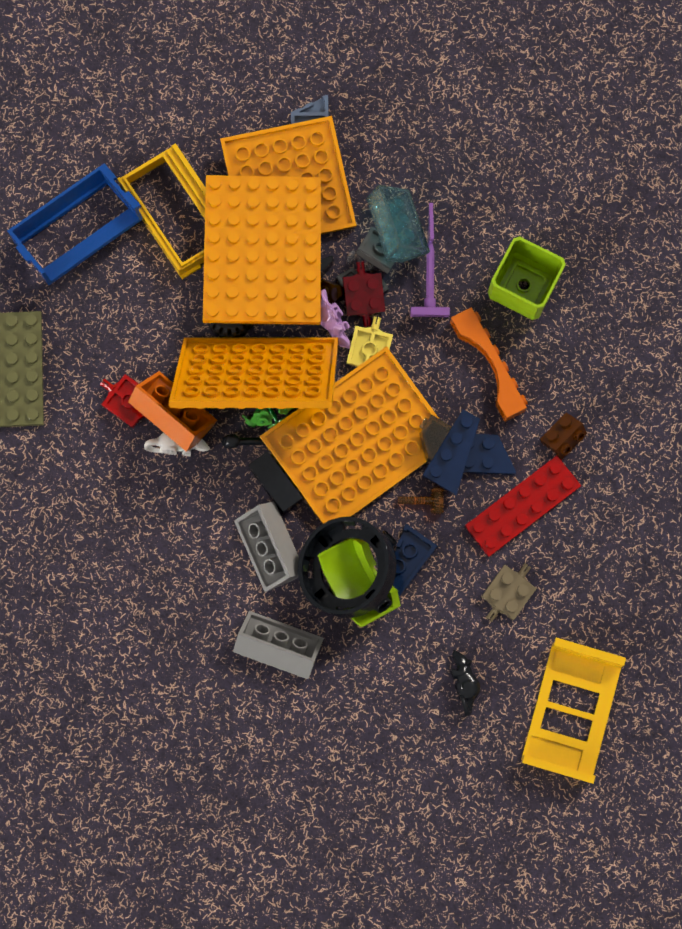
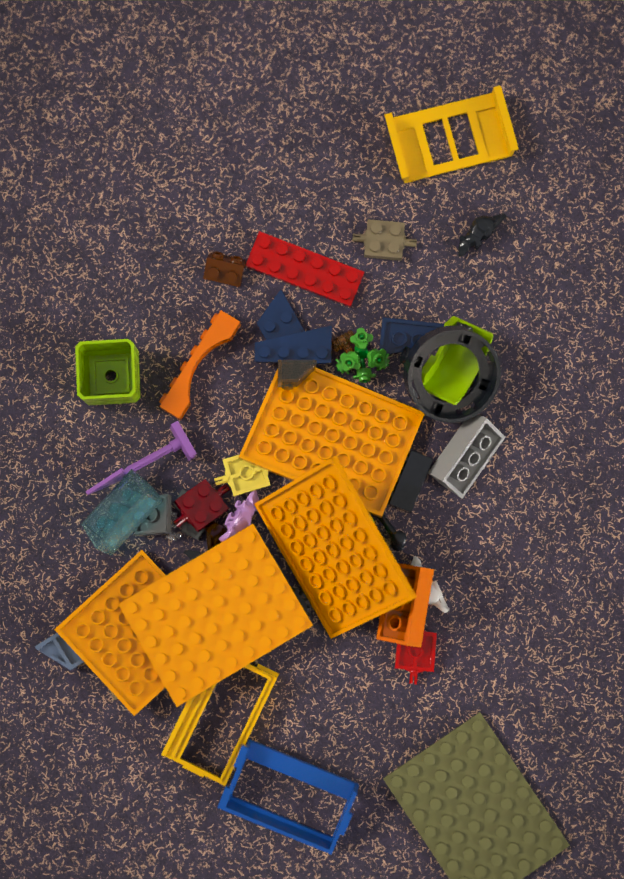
camera: 115 degrees left, 5 degrees up
(278, 644) = (542, 398): light grey slope -> none
(404, 509) = (351, 360): none -> bright green plant

